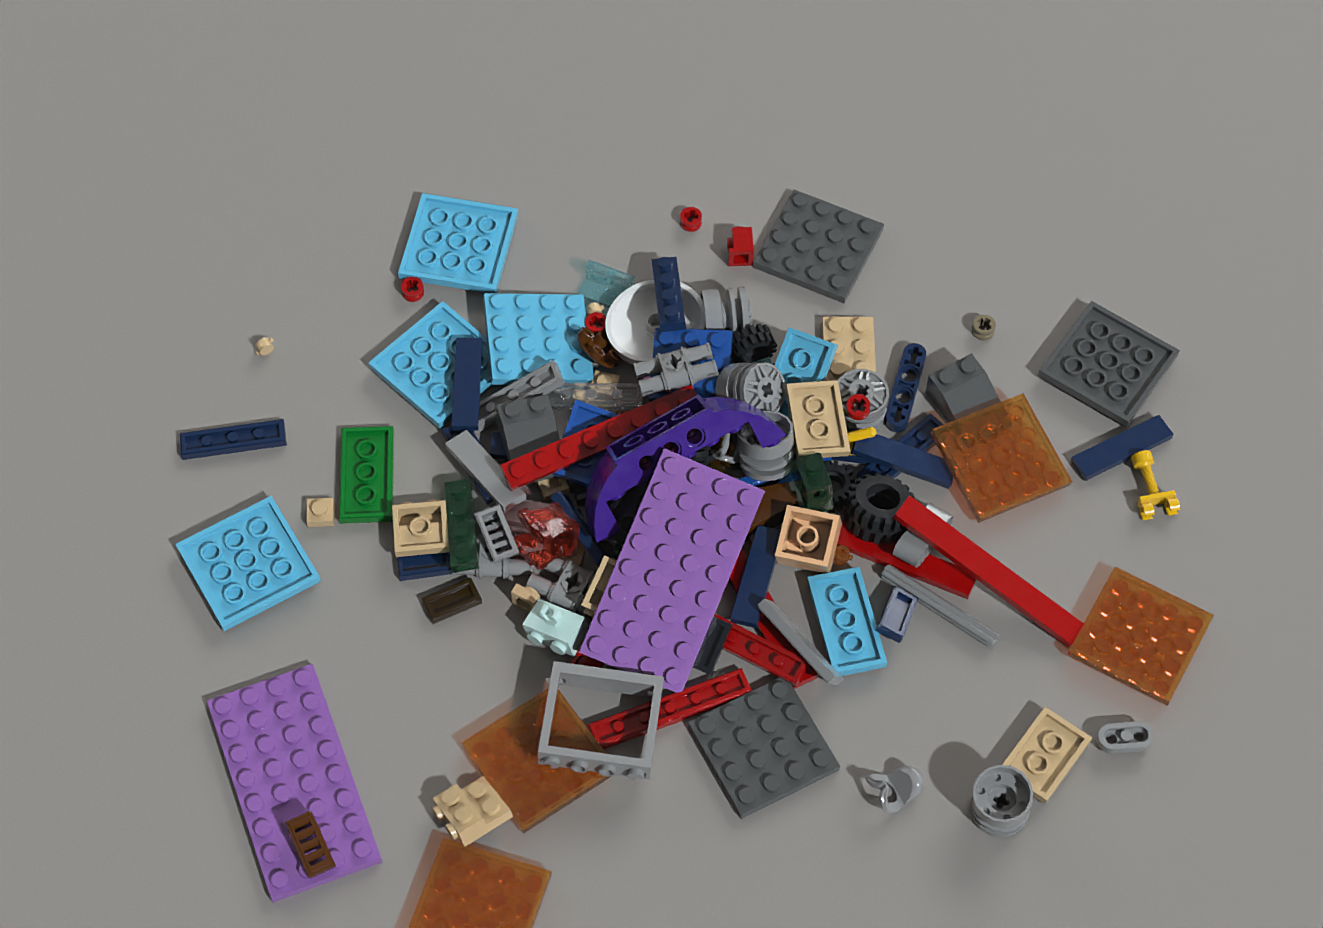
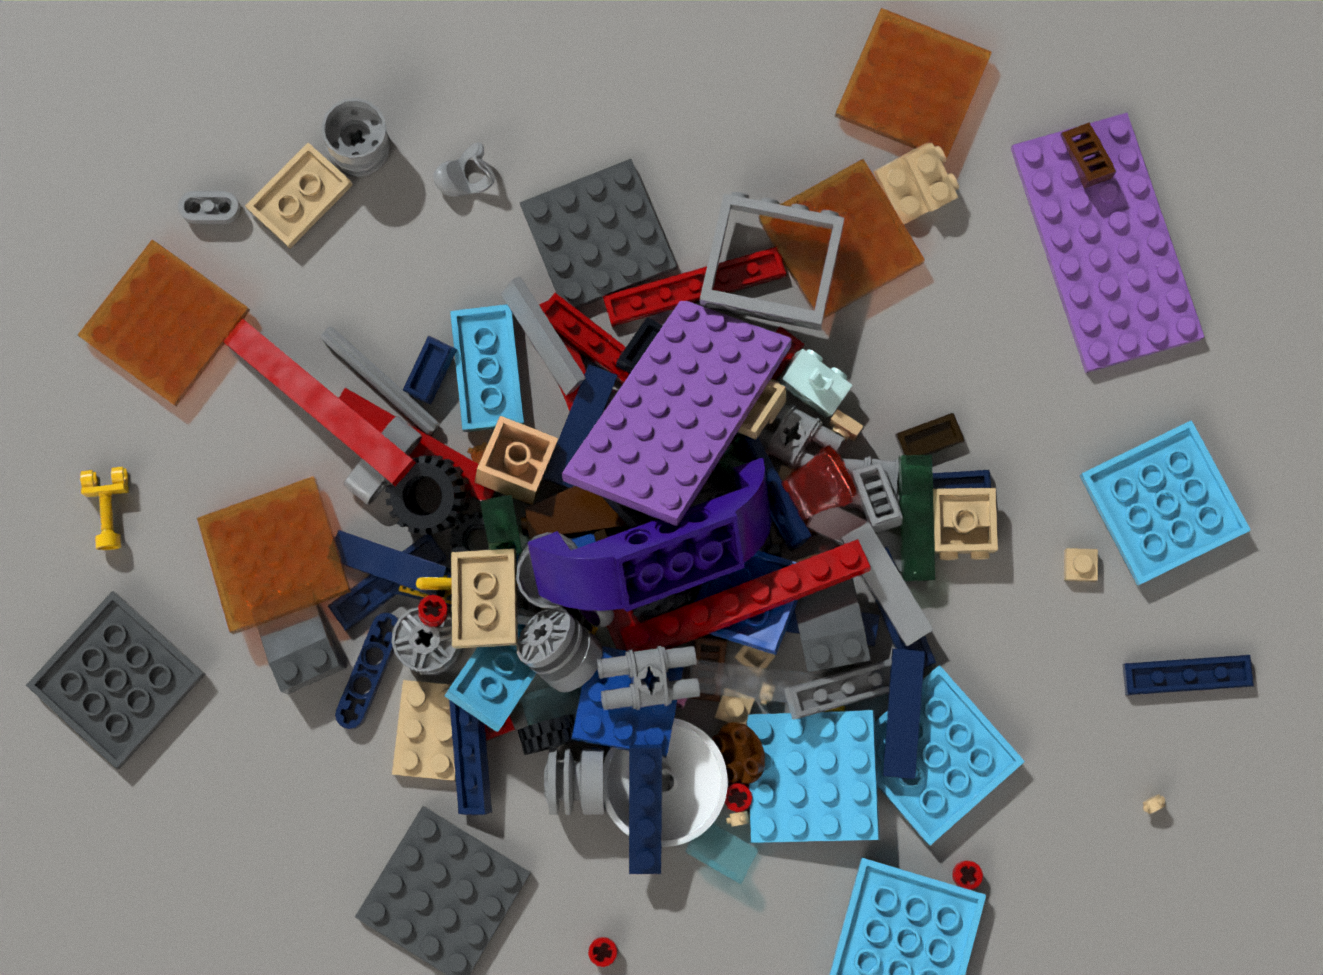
camera: 170 degrees left, 20 degrees up
(366, 474) = (1026, 612): green tile -> none
(740, 247) = (543, 898): red brick -> none
(810, 319) = (470, 762): none -> dark blue plate
(983, 334) = (247, 748): dark tan bush -> none
(1121, 447) = (127, 564): dark blue tile -> none

